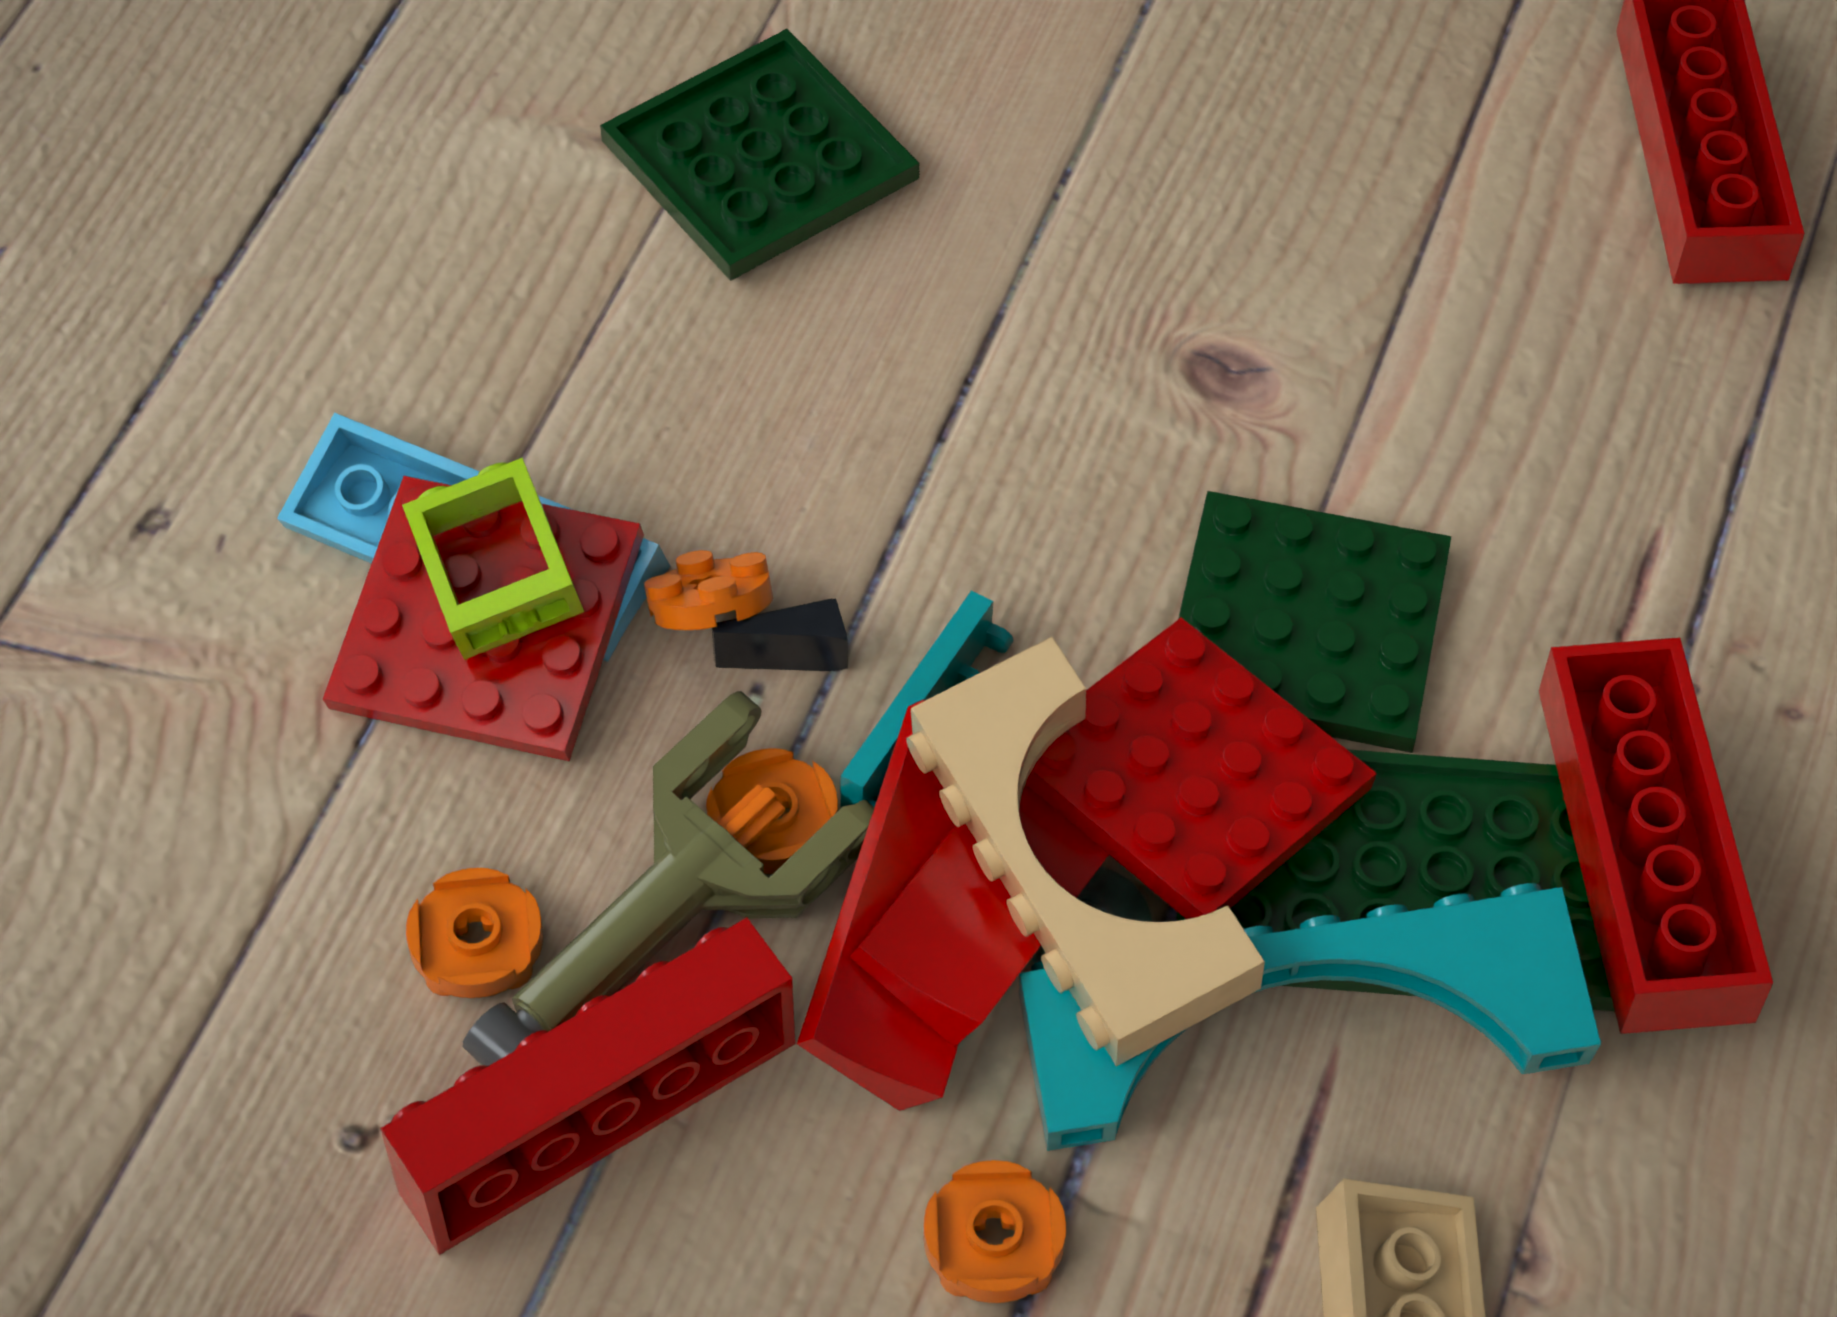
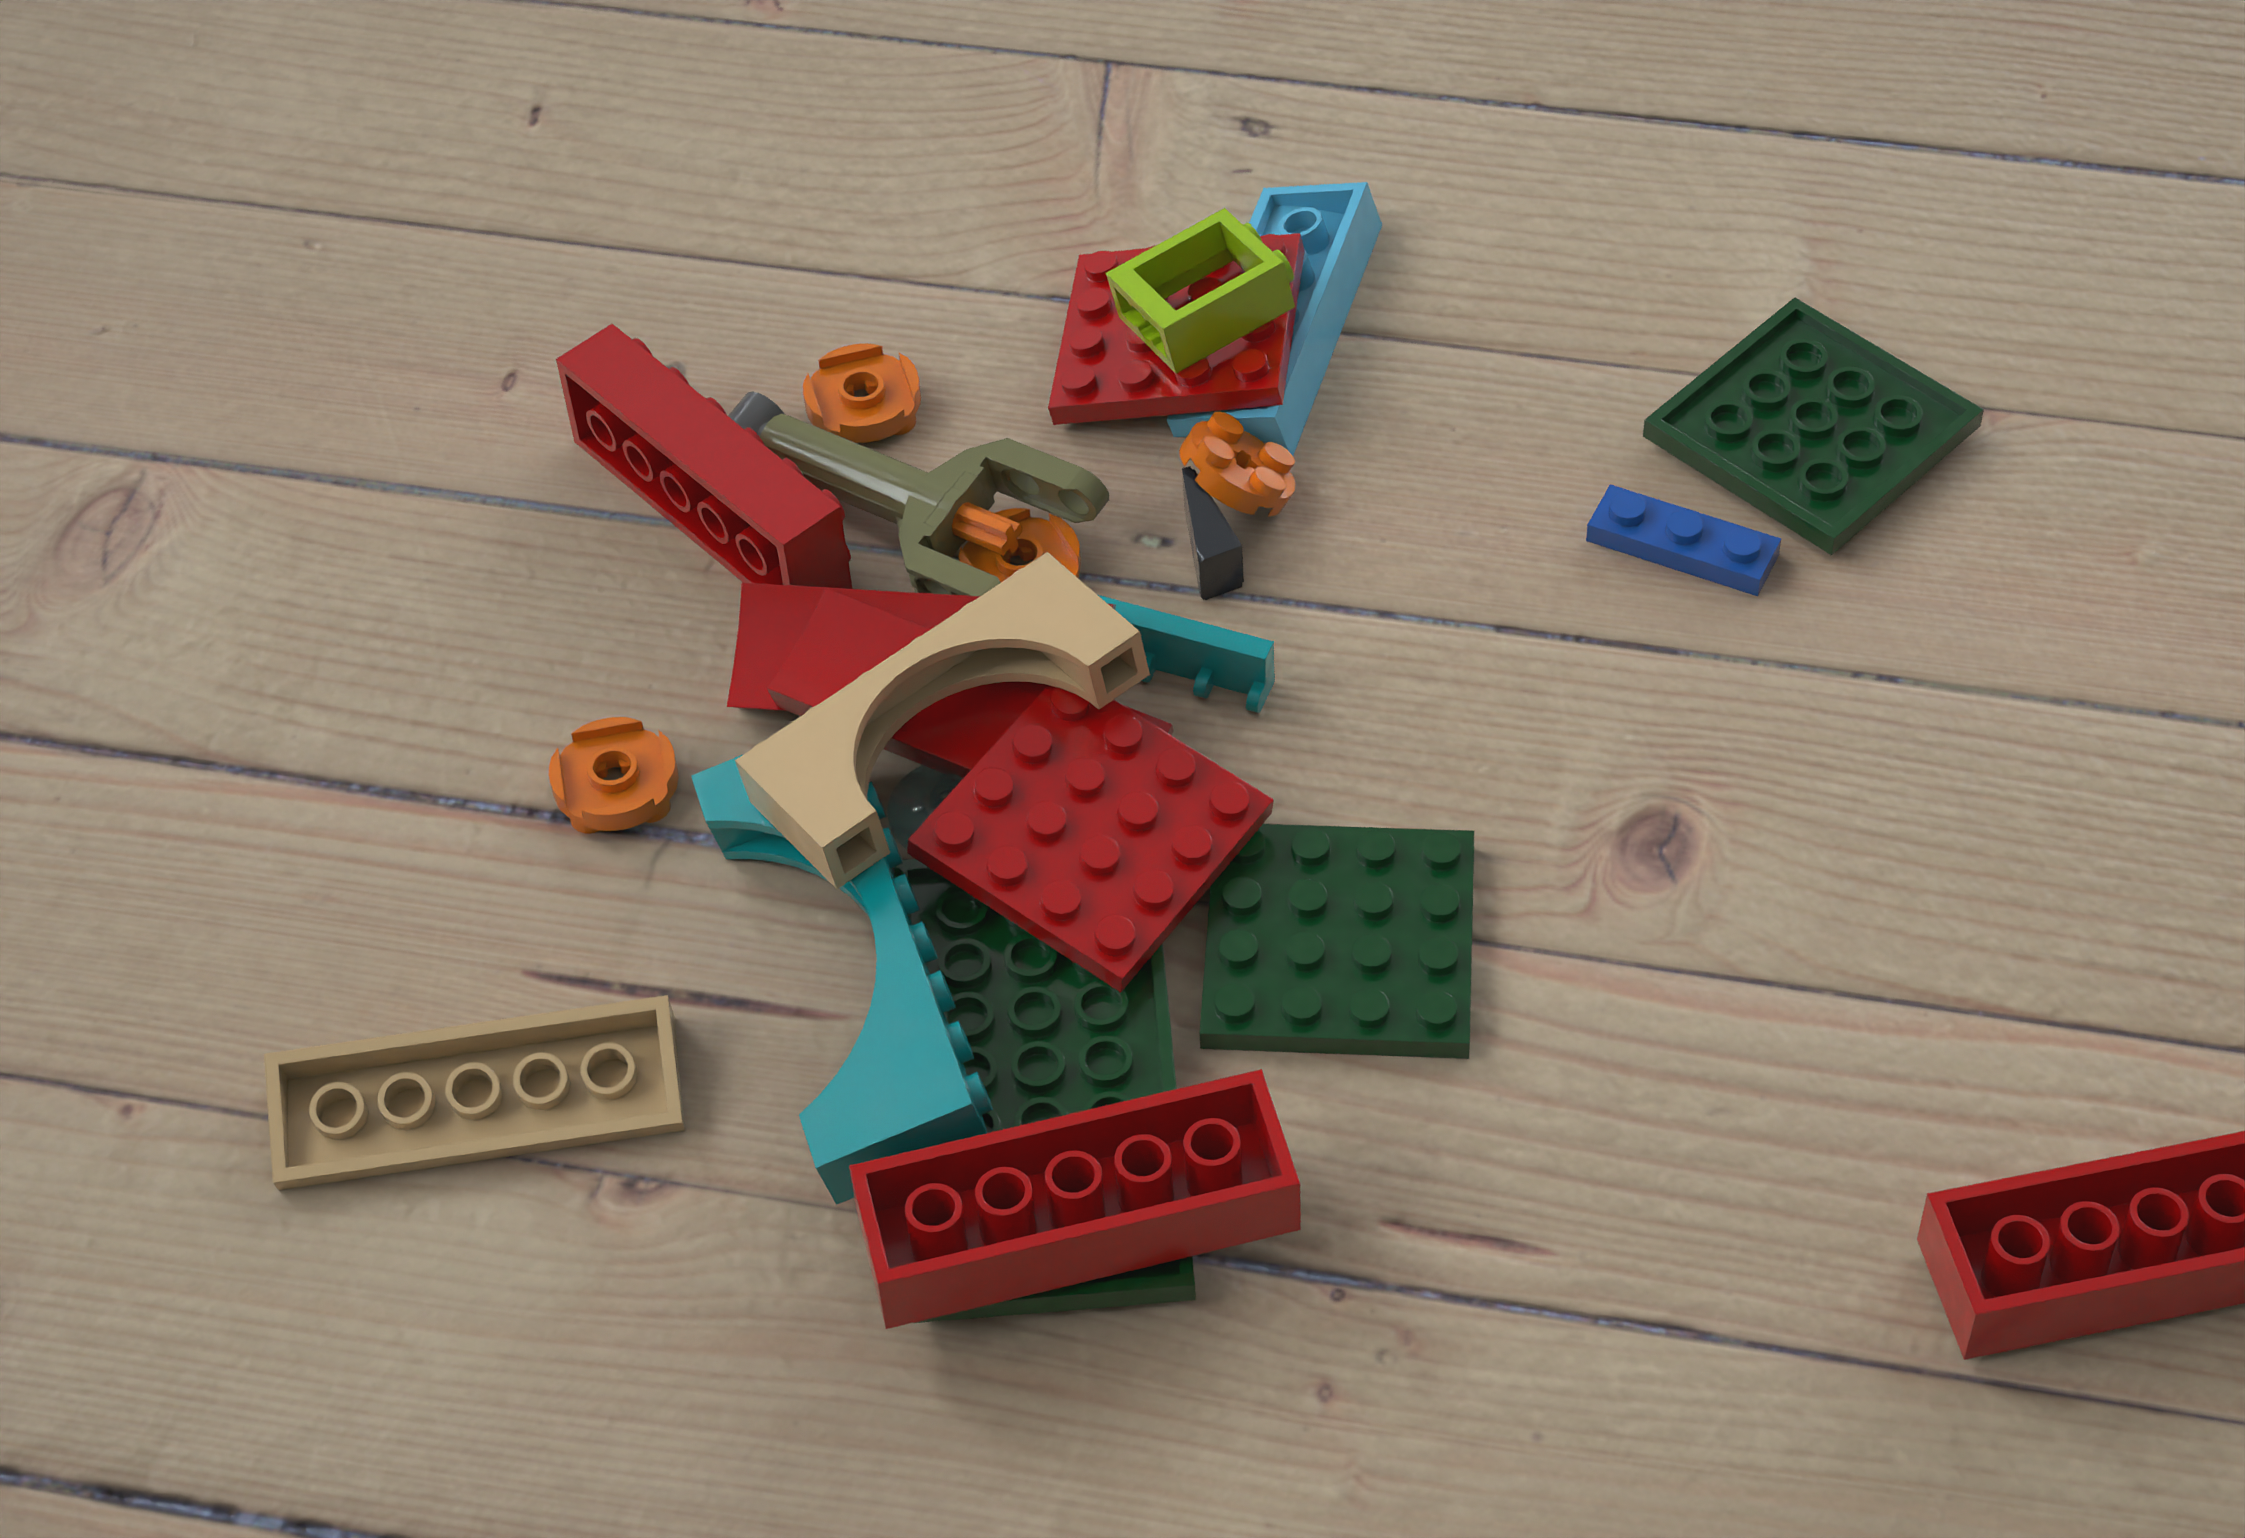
camera: 85 degrees right, 5 degrees down
(871, 278) = (1683, 540): none -> blue plate

